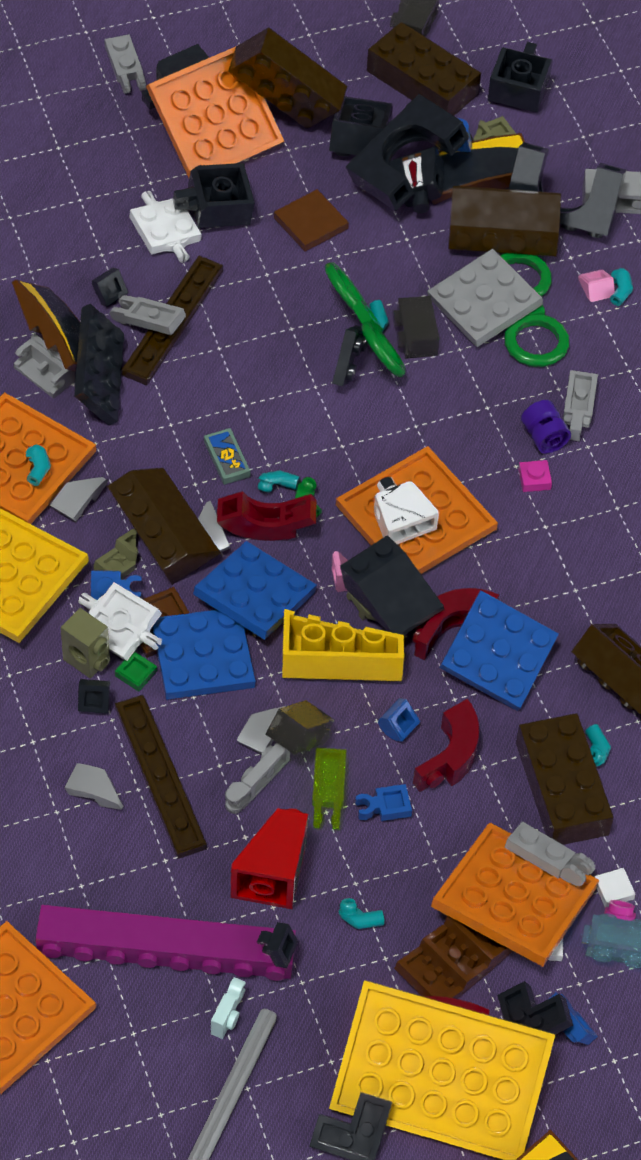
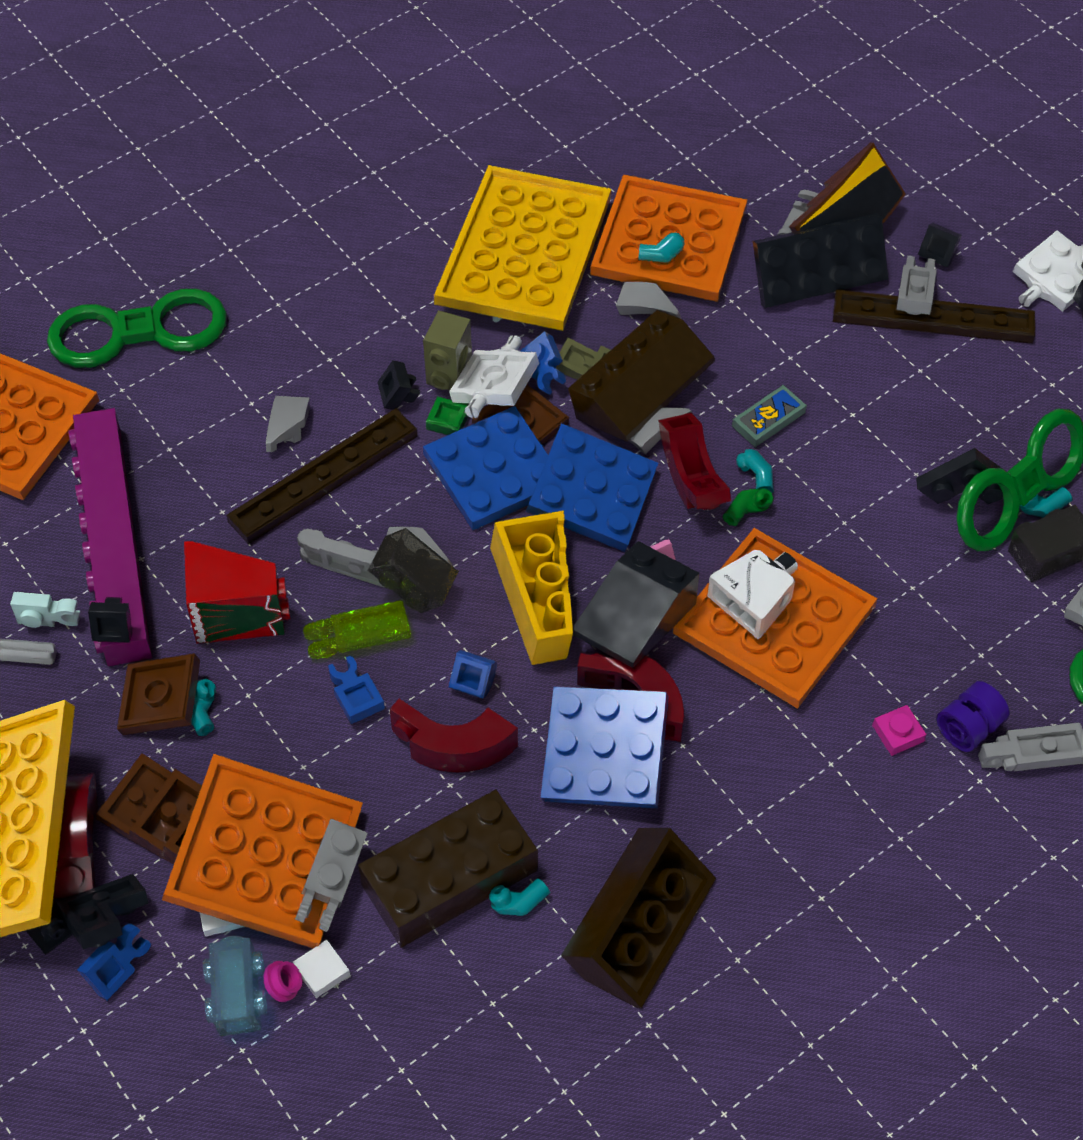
camera: 75 degrees right, 0 degrees up
(342, 940) = (159, 694): none -> reddish brown tile

